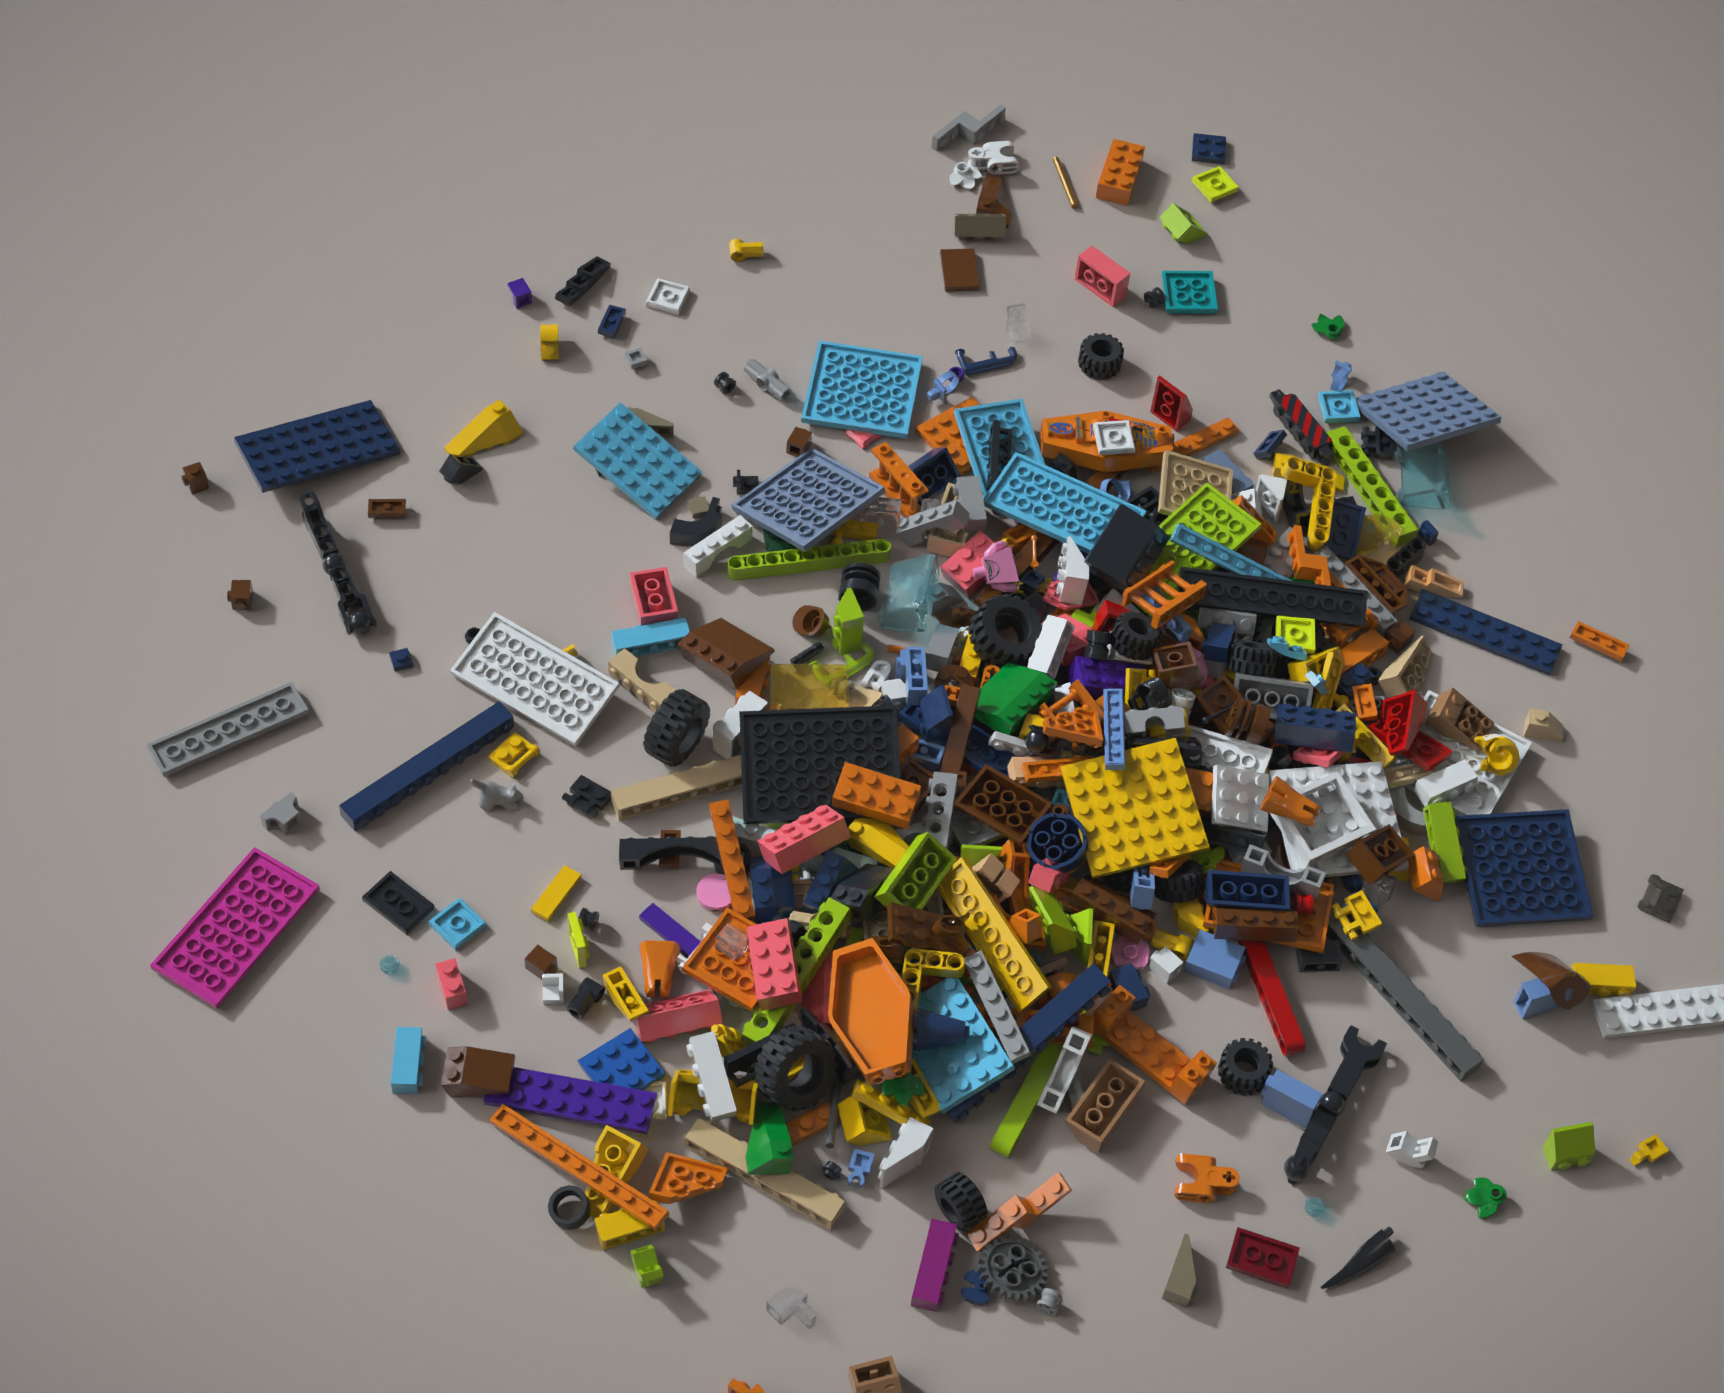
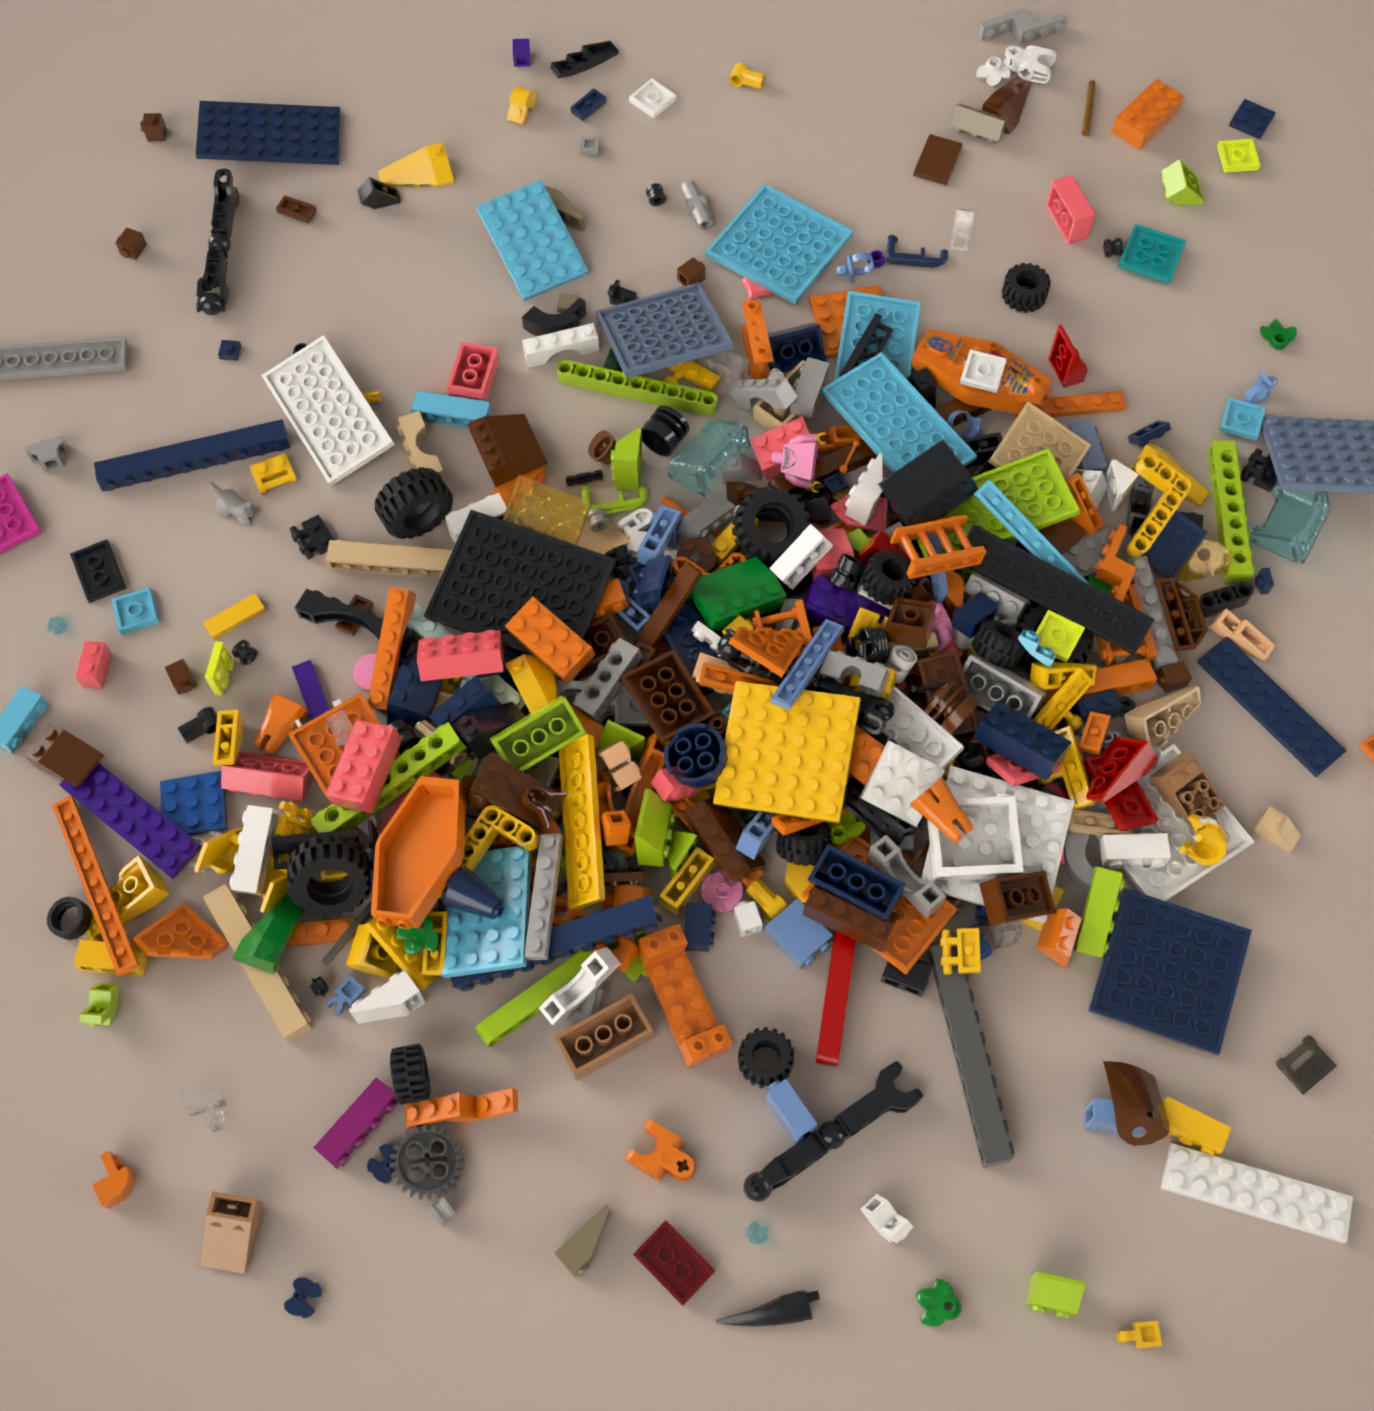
camera: 30 degrees right, 10 degrees up
(553, 988) = (178, 706): white panel -> none
(1302, 426) = (1192, 426): black hinge -> none
(1303, 904) = (910, 917): red wheel -> none
(1318, 682) = (1049, 694): medium azure plate -> none

